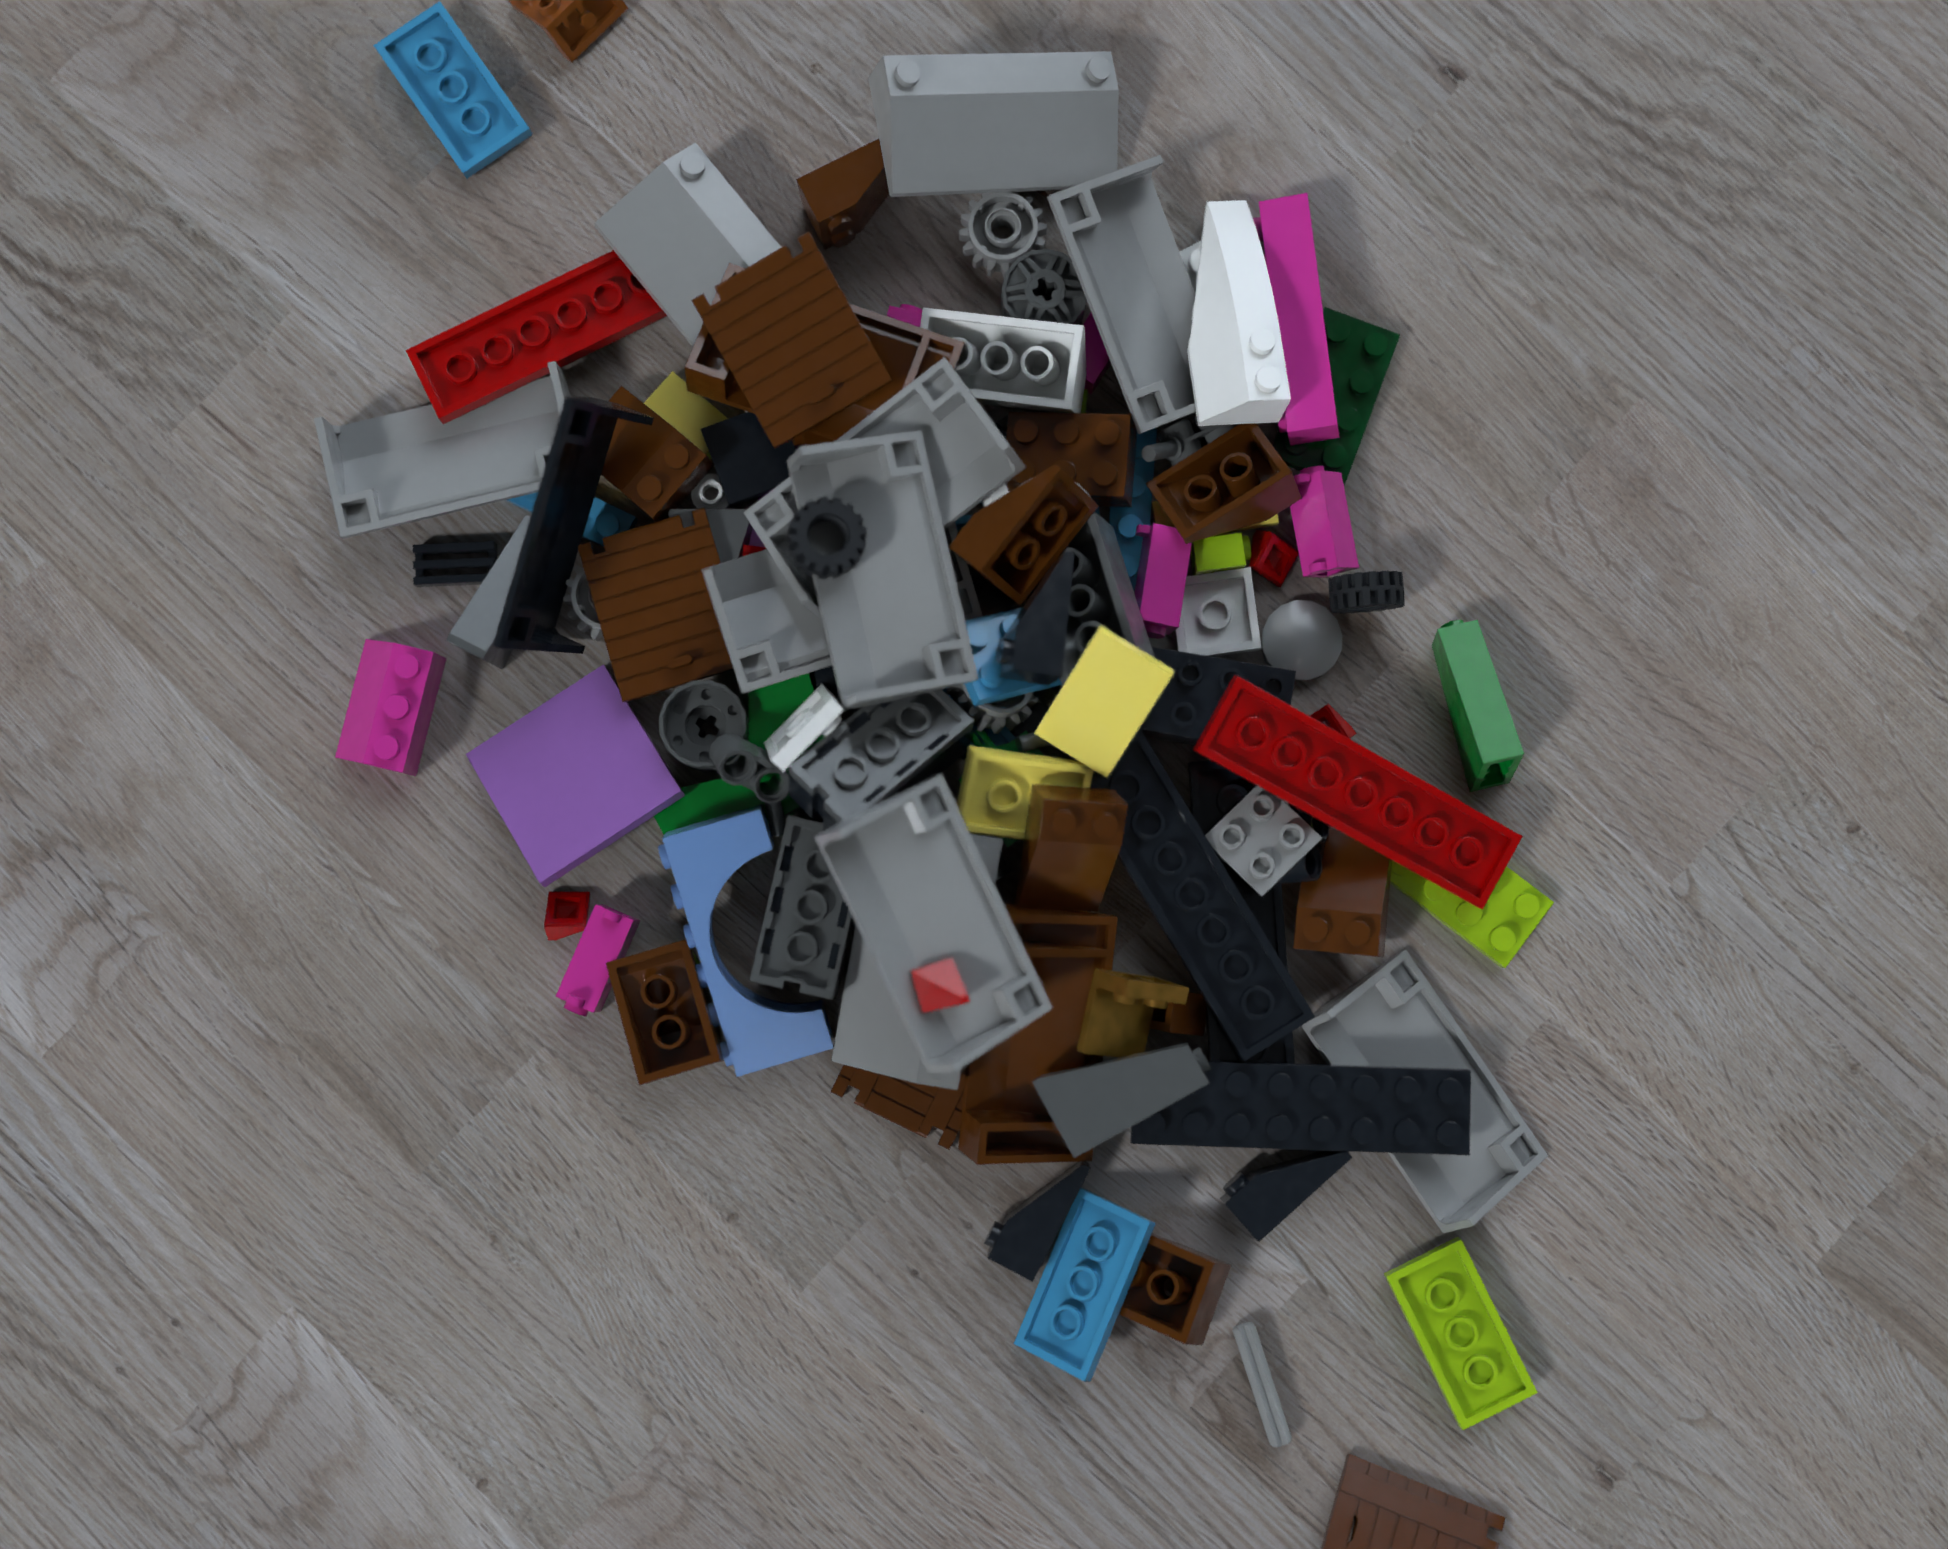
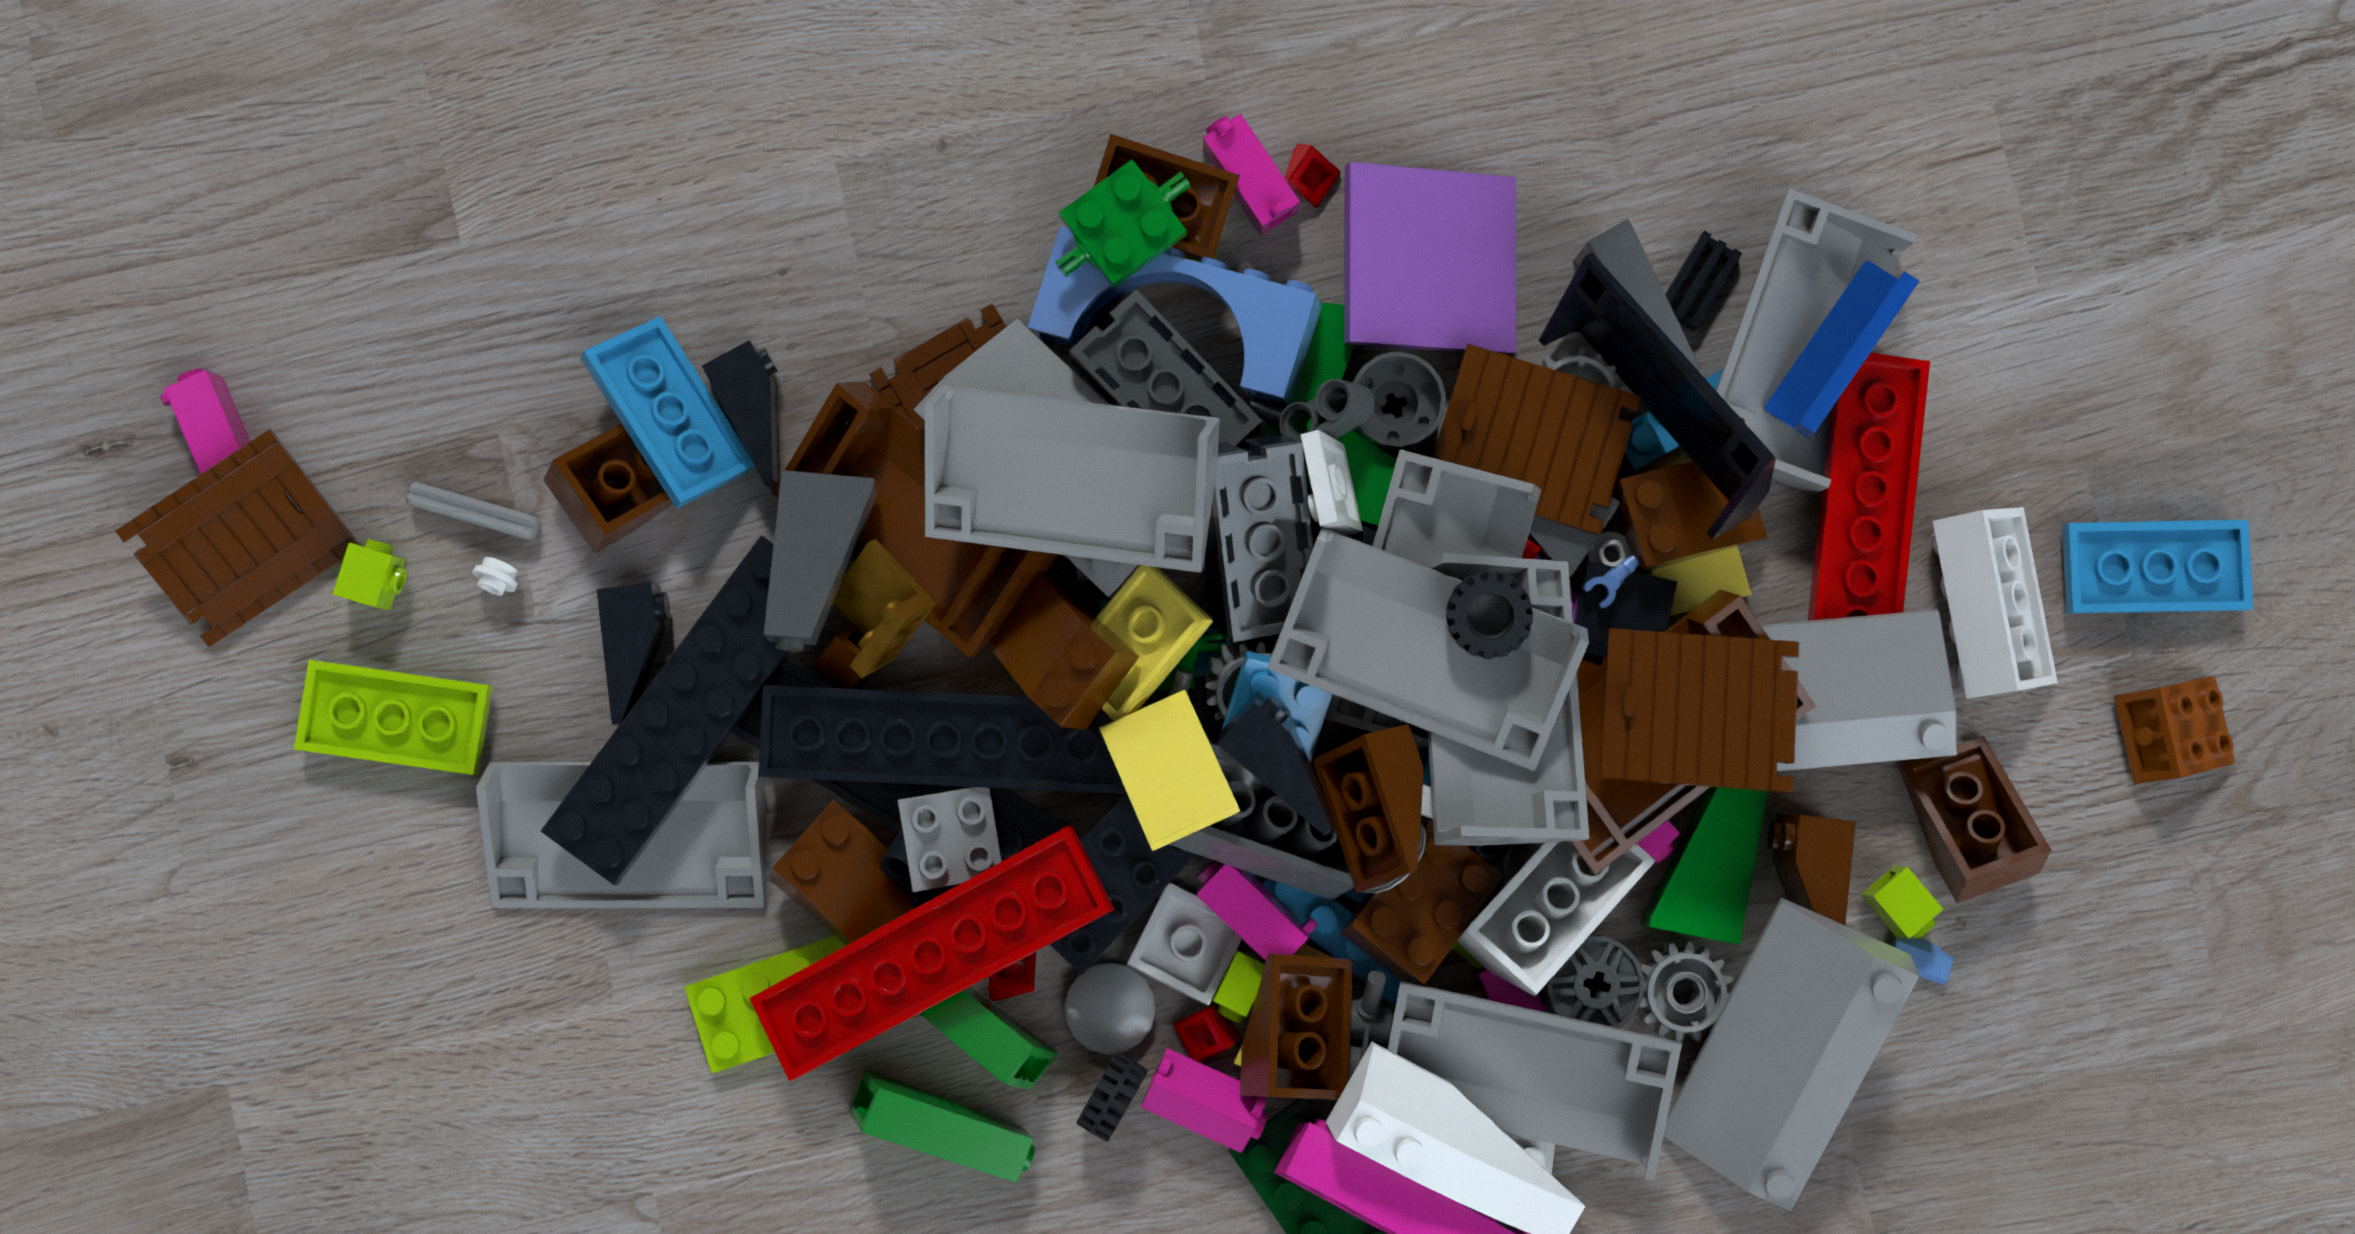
camera: 120 degrees right, 0 degrees up
(391, 706) = (1602, 138): dark pink slope -> none
(440, 420) = (1839, 348): none -> blue panel
(560, 190) = (1994, 602): none -> white slope
(705, 1026) = (1122, 223): none -> green plate
(732, 476) = (1612, 580): none -> medium blue piece
(734, 102) = (1974, 820): none -> reddish brown slope
(830, 115) = (1902, 903): none -> lime brick
(857, 70) = (1929, 959): none -> medium blue piece
(904, 267) = (1711, 868): none -> green slope
(939, 986) = (1012, 444): red slope -> none
(1300, 1330) = (495, 576): none -> white plate
(1365, 1428) = (371, 575): none -> lime brick
(1386, 708) = (992, 1038): none -> green slope

